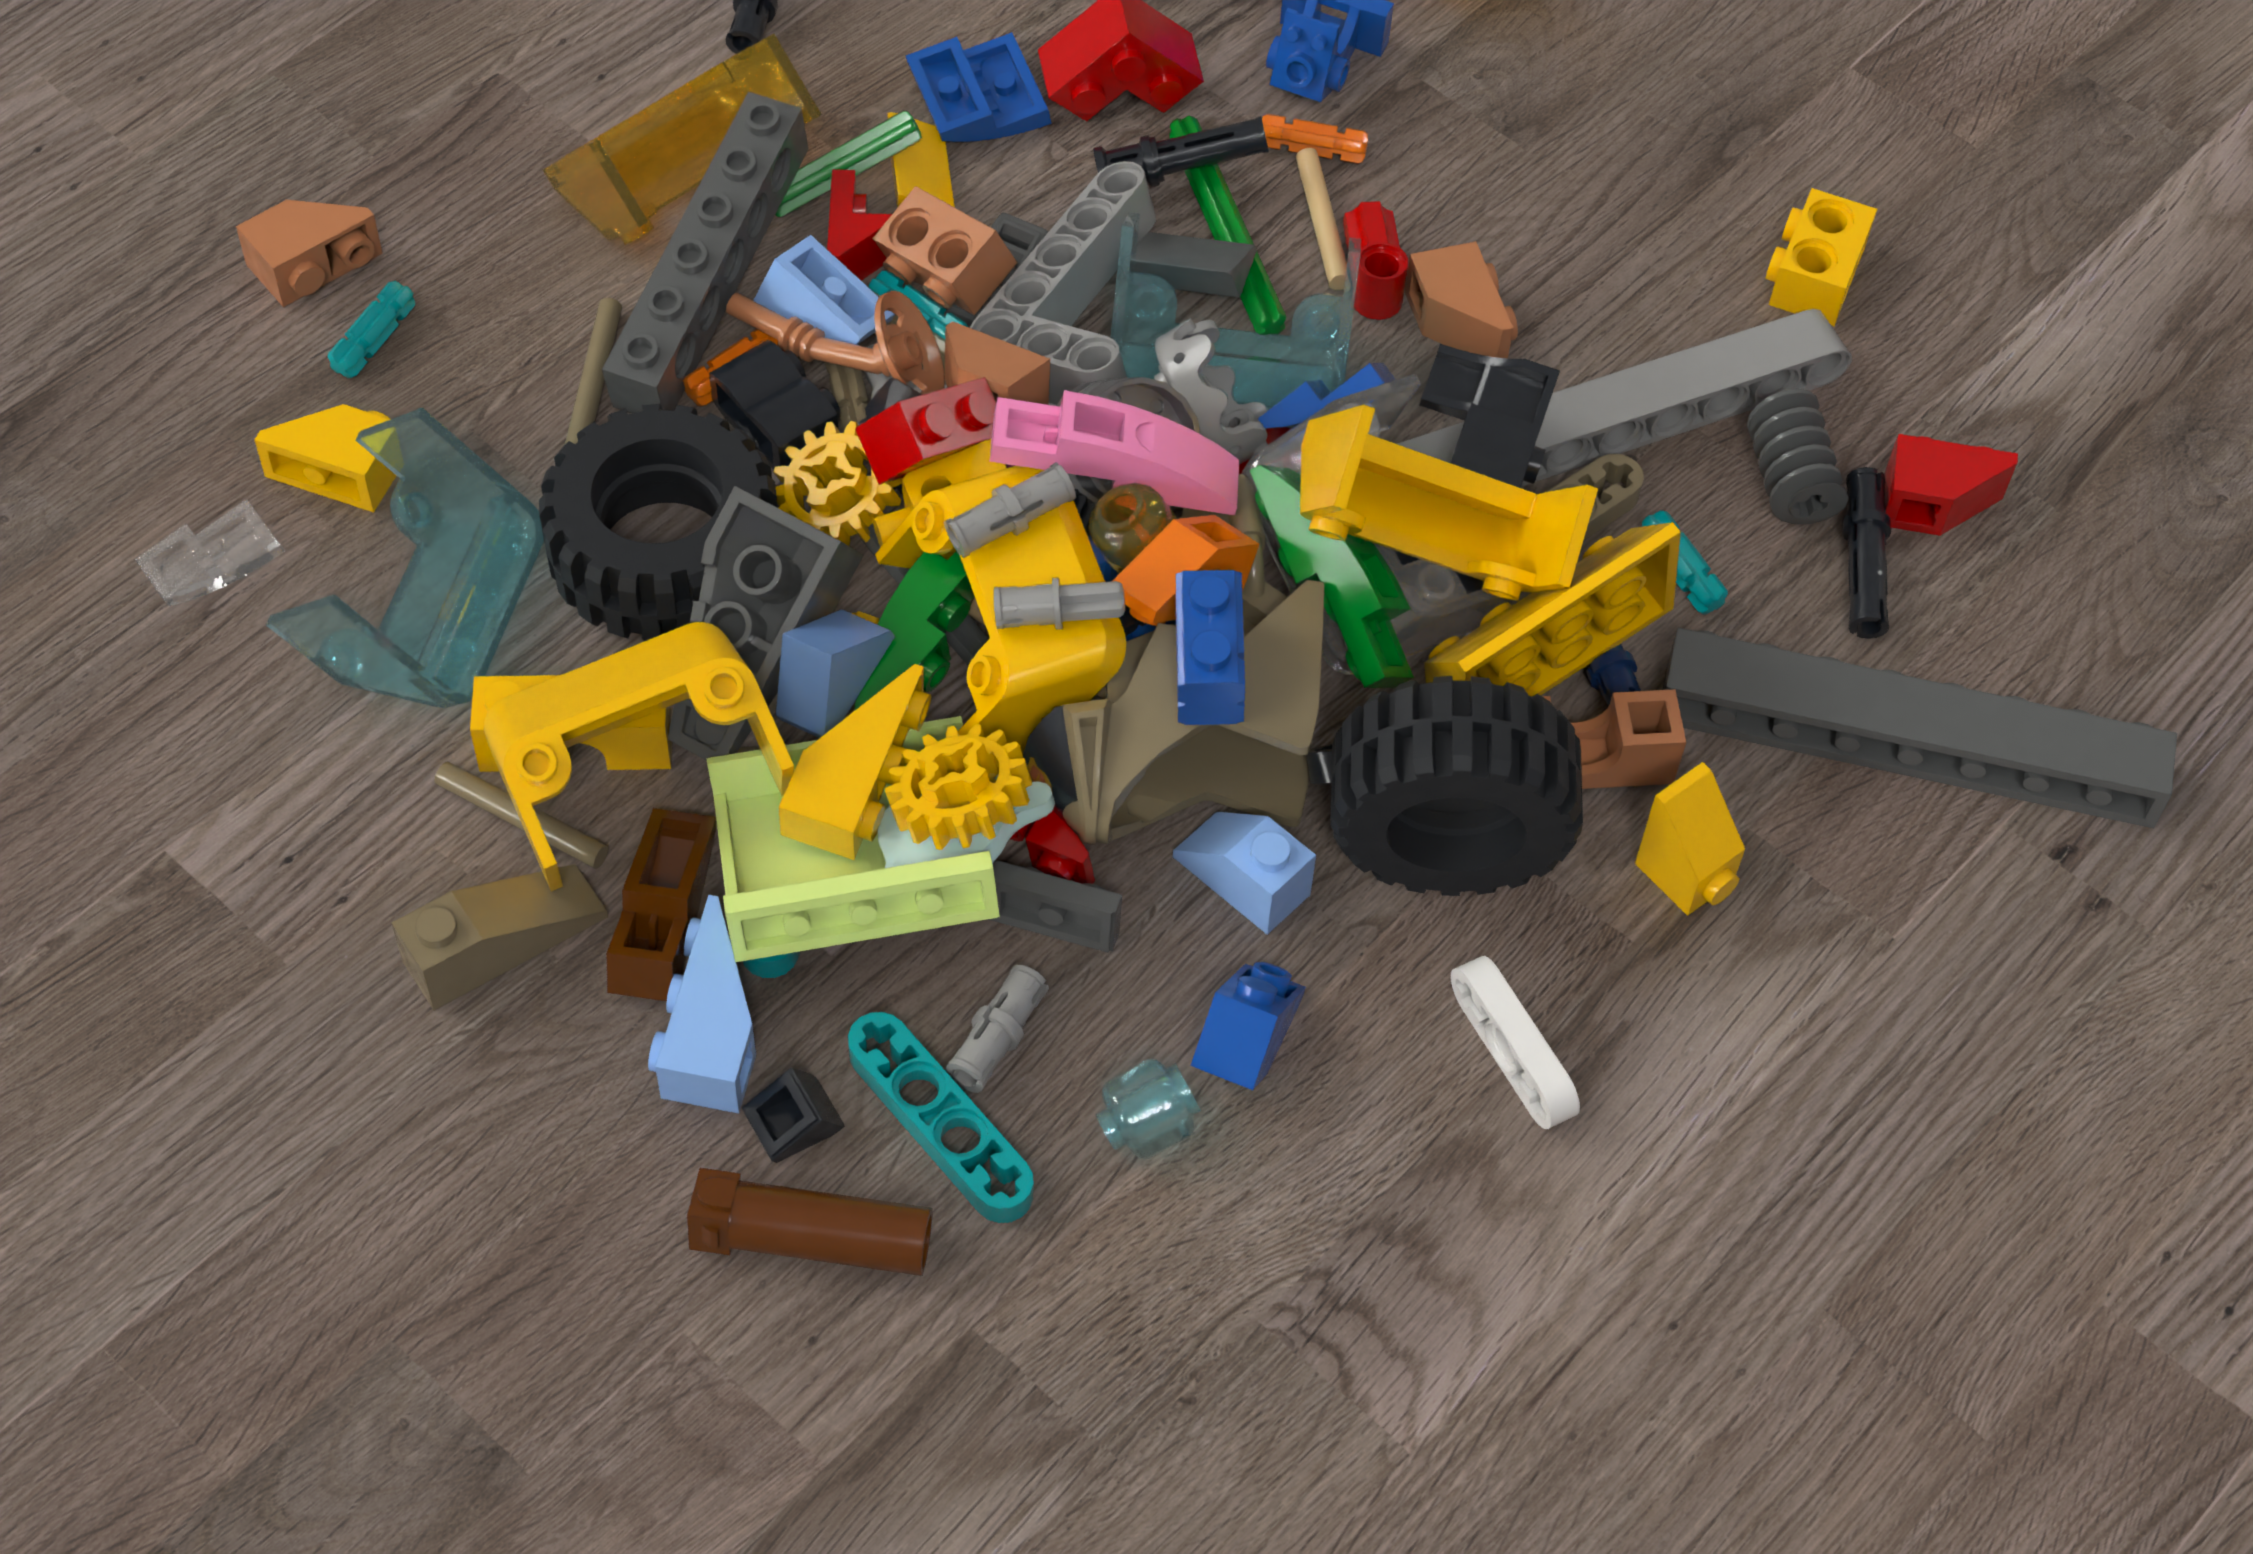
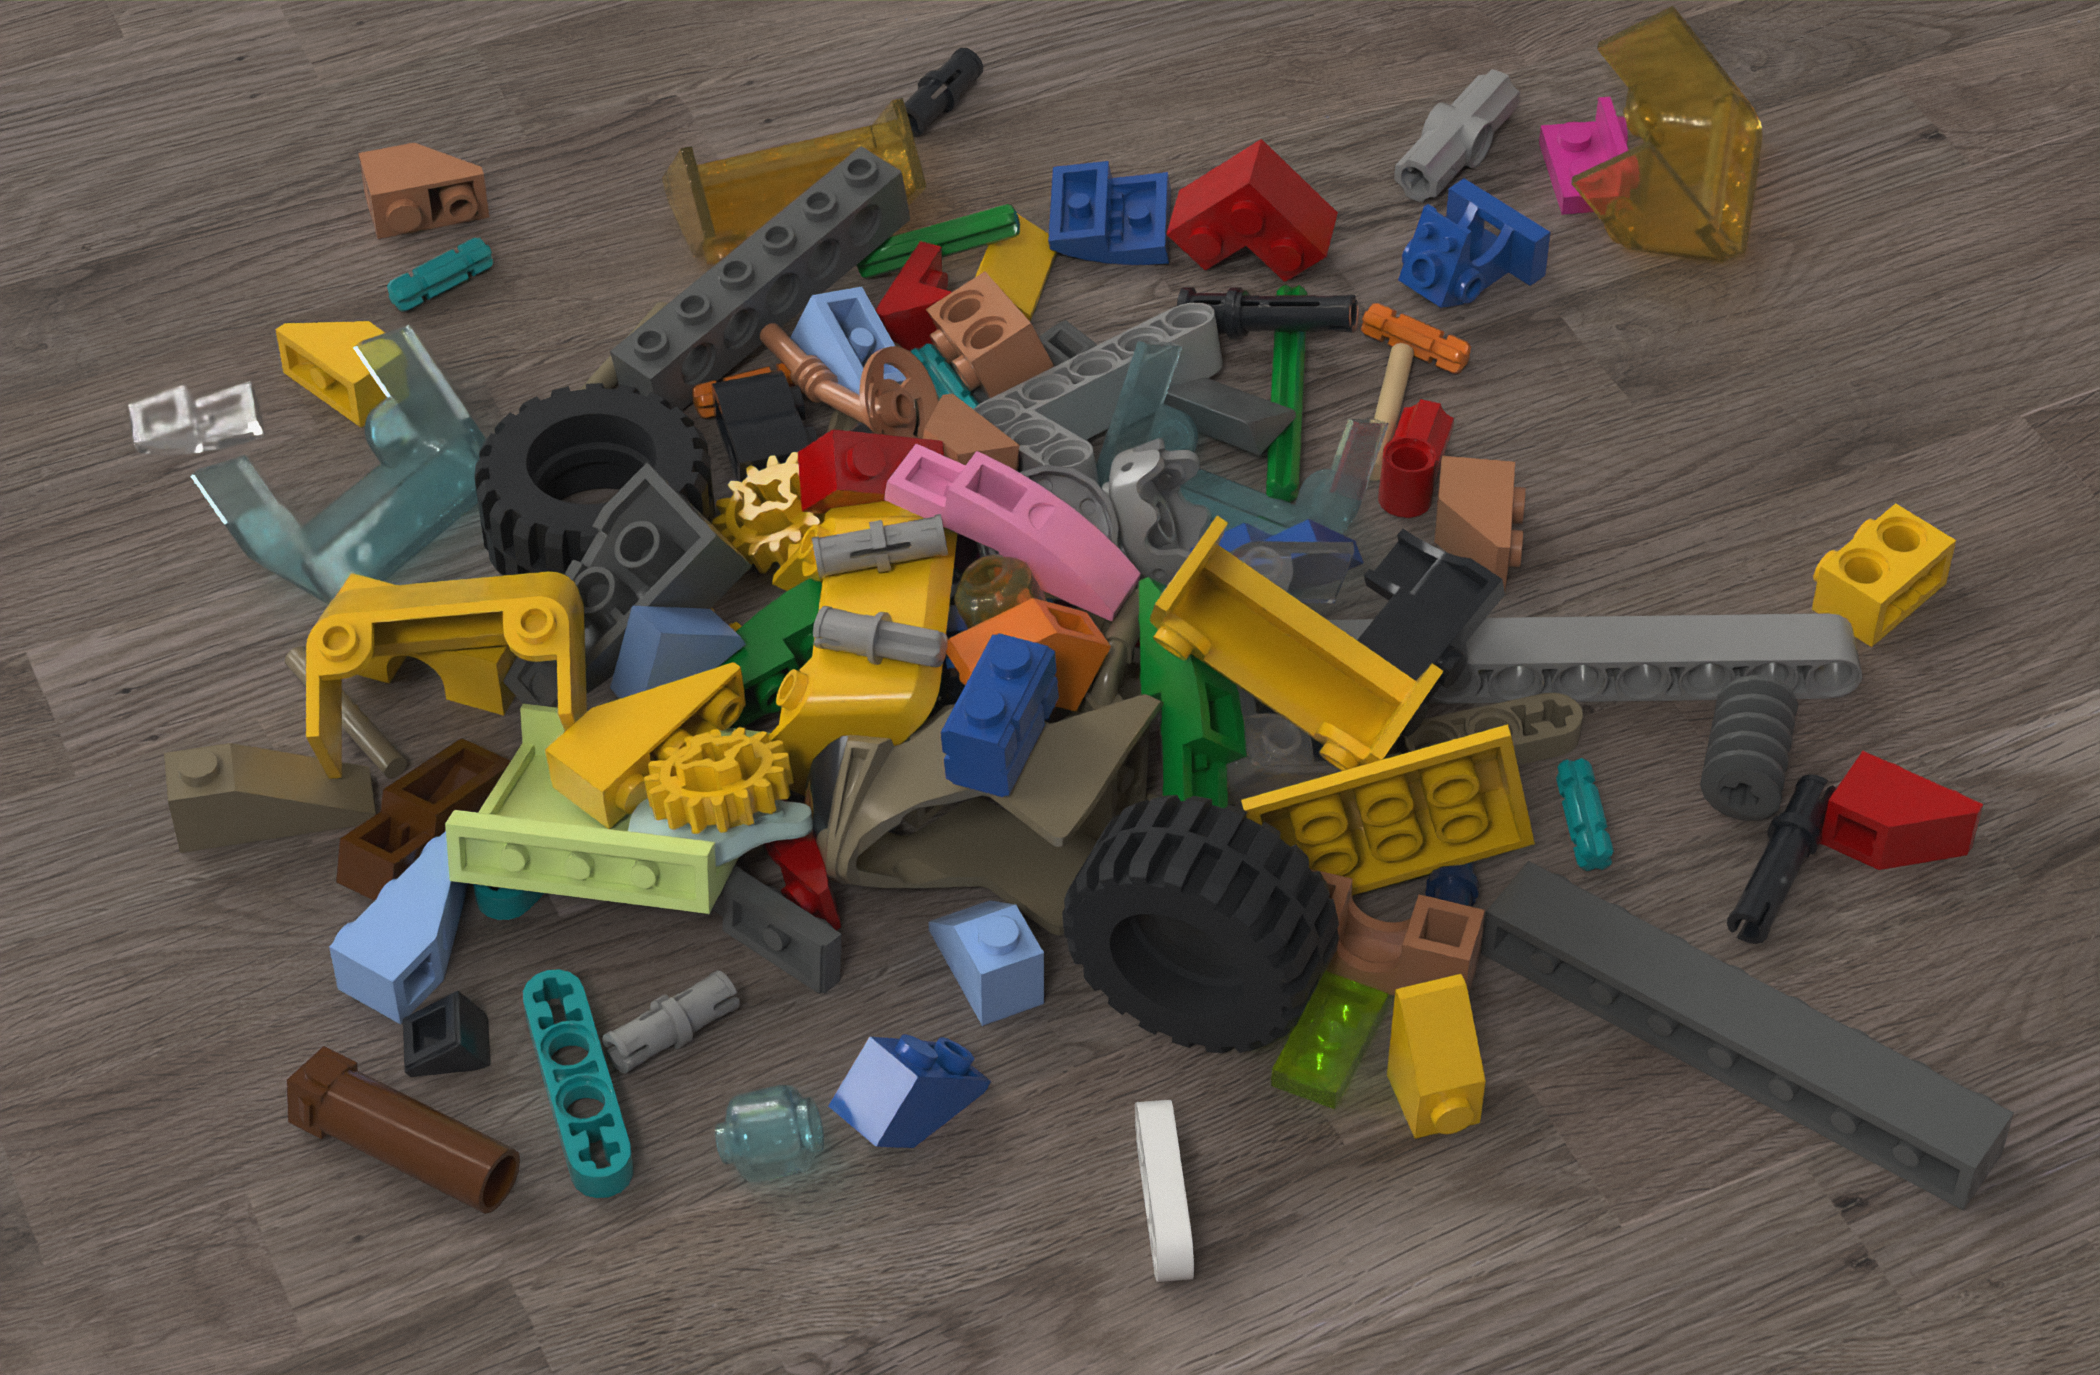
camera: 25 degrees right, 10 degrees down
(1588, 872) = (1329, 1040): none -> clear neon green plate

